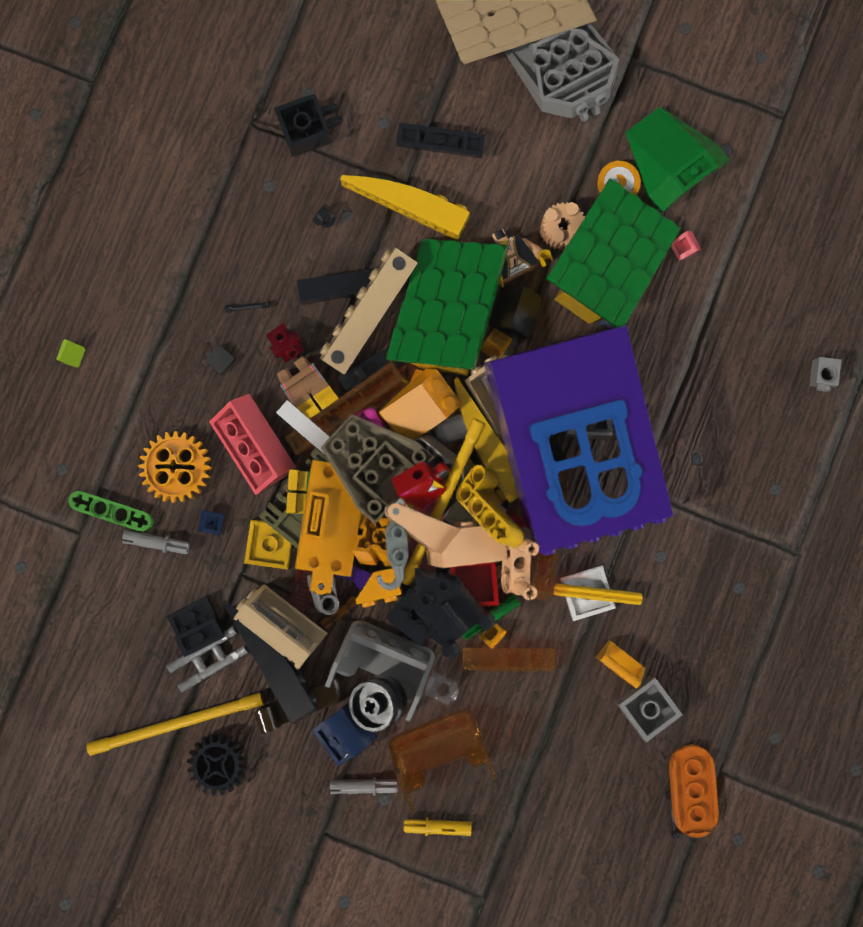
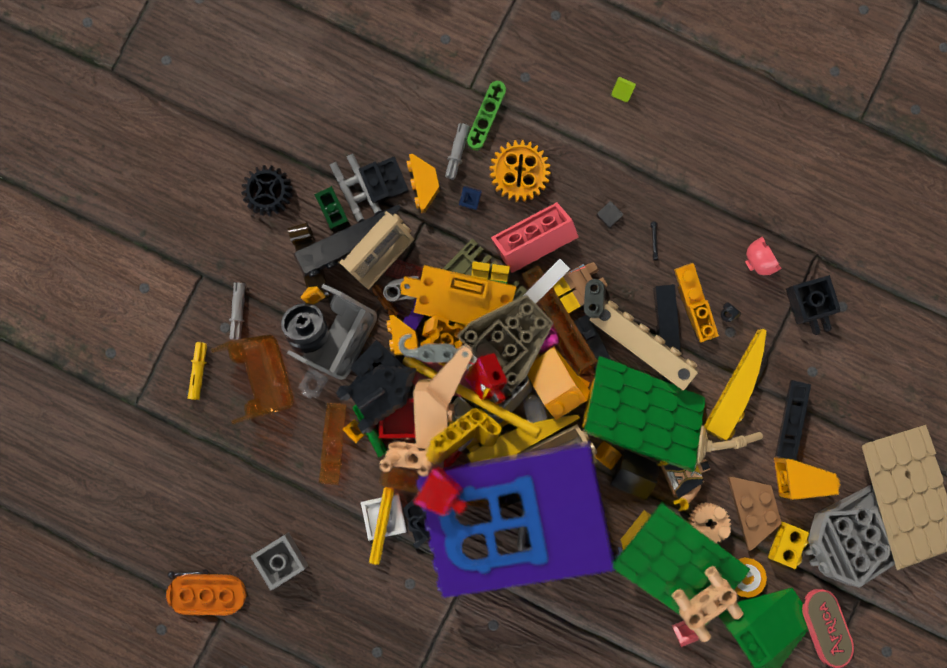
camera: 90 degrees right, 0 degrees up
(107, 743) = (315, 216): yellow piece -> none
(194, 578) = (424, 181): none -> light orange slope
(235, 683) = (332, 209): none -> dark green brick
(259, 184) = (761, 258): none -> coral cylinder
(267, 547) = (445, 244): yellow tile -> none
(284, 343) = (620, 270): dark red brick -> none
(317, 256) = (695, 303): none -> light orange slope
(319, 368) = (596, 298): none -> pearl dark grey plate
(339, 697) = (312, 295): none -> light orange slope
(342, 736) = (280, 296): dark blue brick -> none
(471, 201) = (738, 442): none -> tan dish
(508, 125) = (803, 481): none -> light orange slope
(543, 177) = (755, 510): none -> medium nougat wing
(558, 525) = (441, 494): none -> red torso
(578, 145) = (783, 543): none -> yellow brick
(588, 553) = (416, 524): none -> black slope
(621, 664) = (319, 541): light orange tile -> none
(652, 222) = (708, 604): none -> light nougat piece
(665, 91) = (828, 628): none -> dark tan tile

